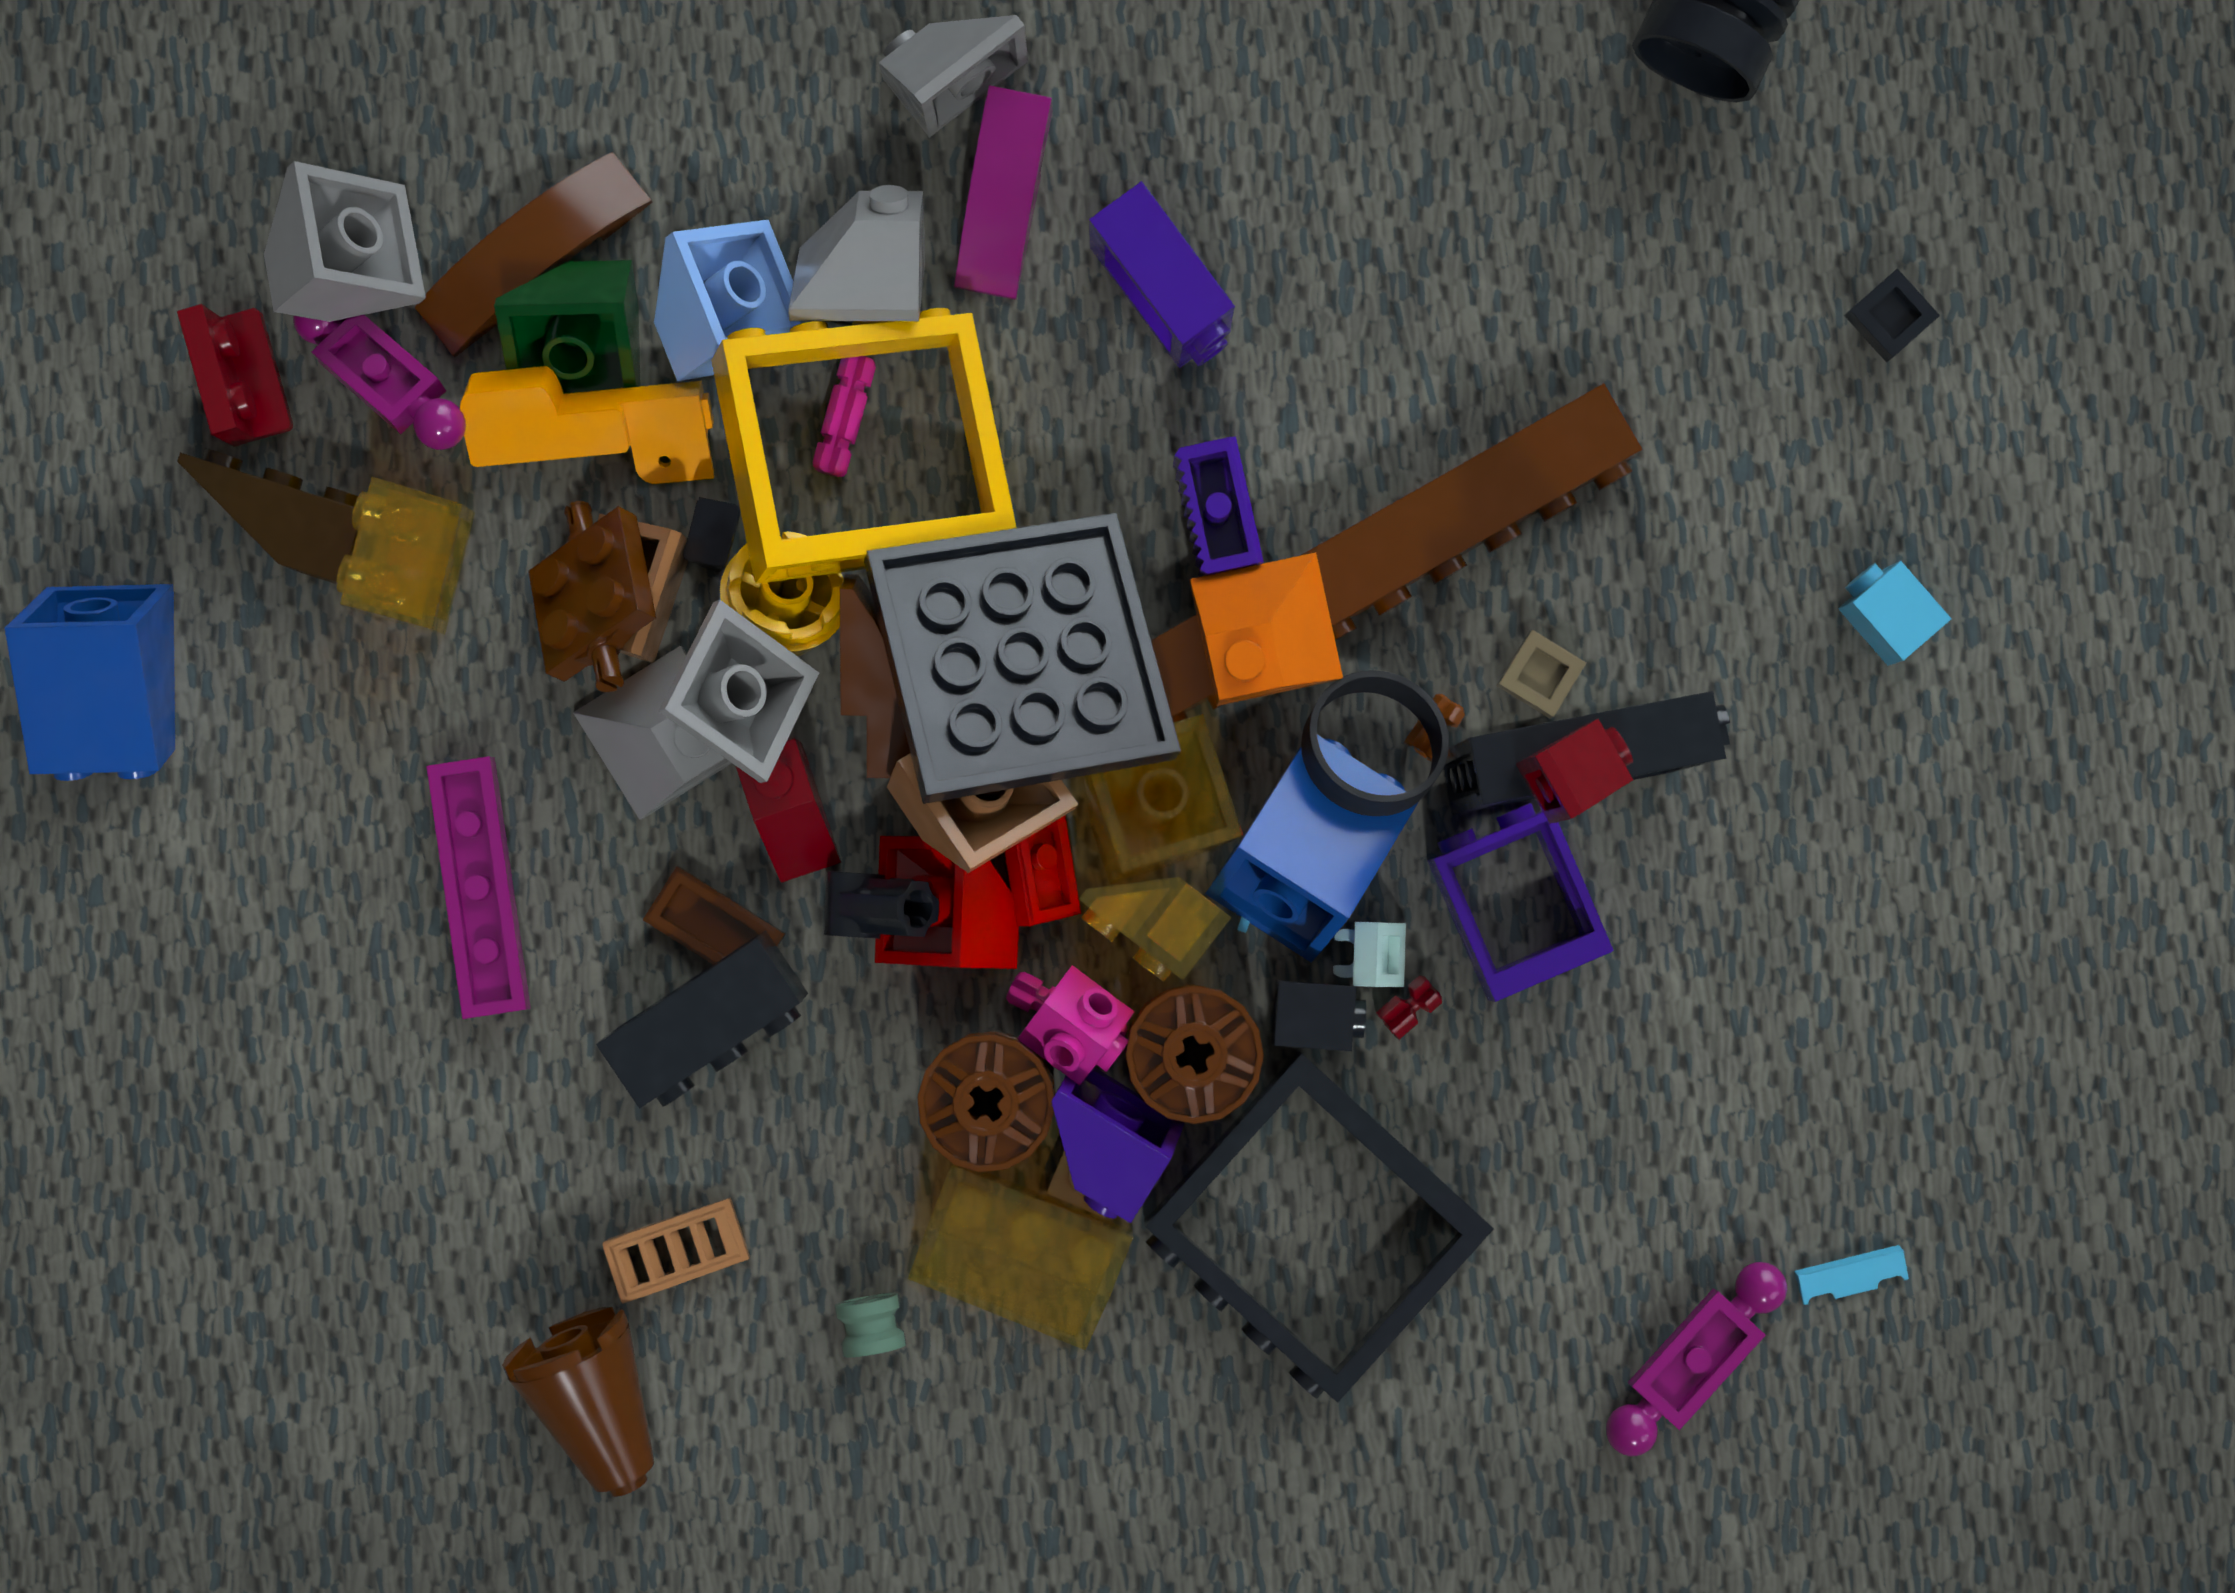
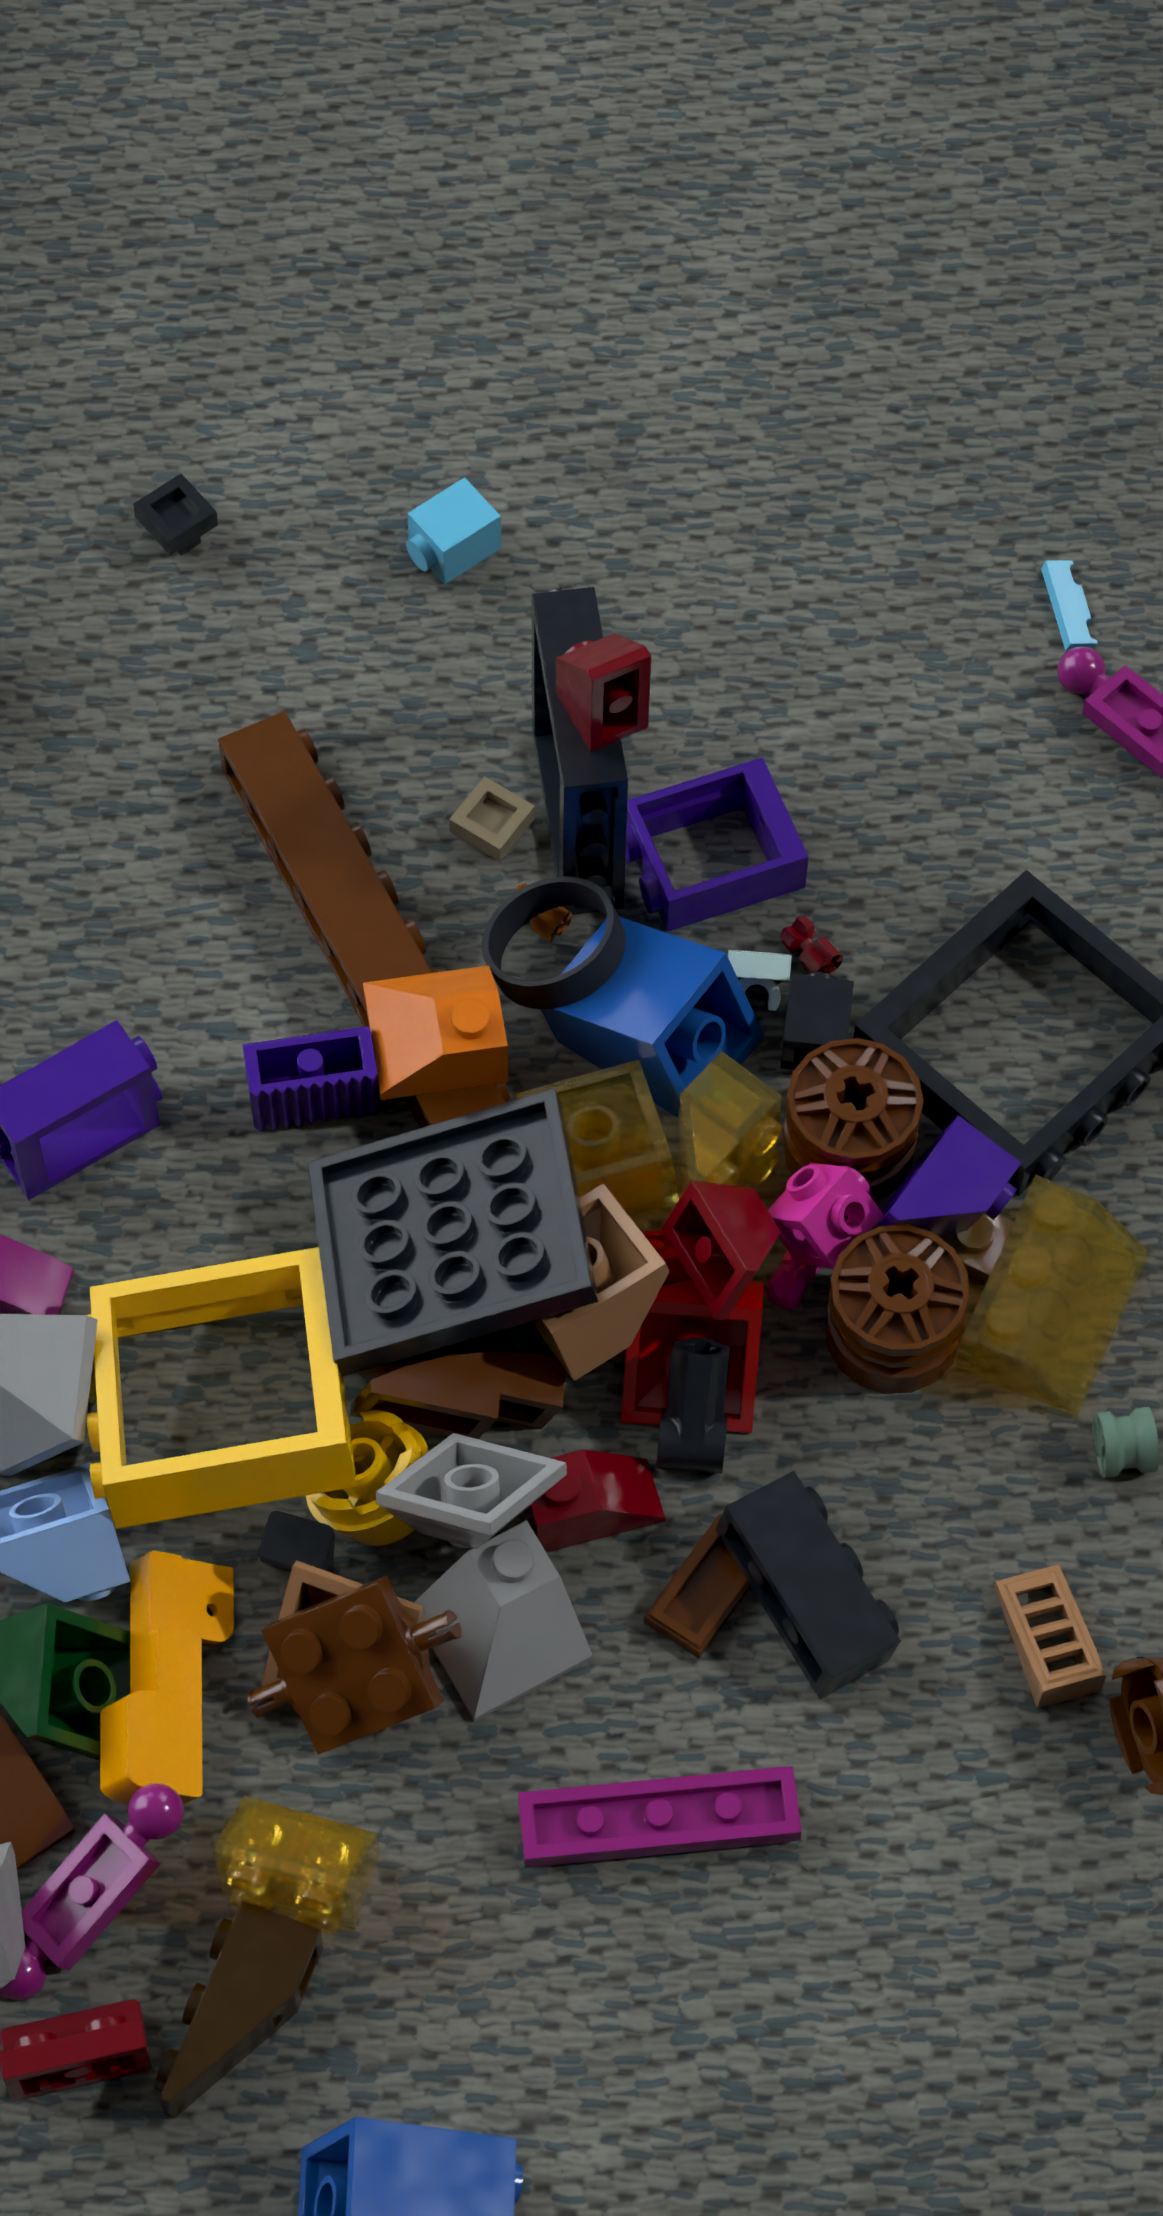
camera: 85 degrees left, 25 degrees down
(844, 415) = (174, 1430): dark pink axle -> none
(1023, 928) = (720, 1240): none -> dark red slope

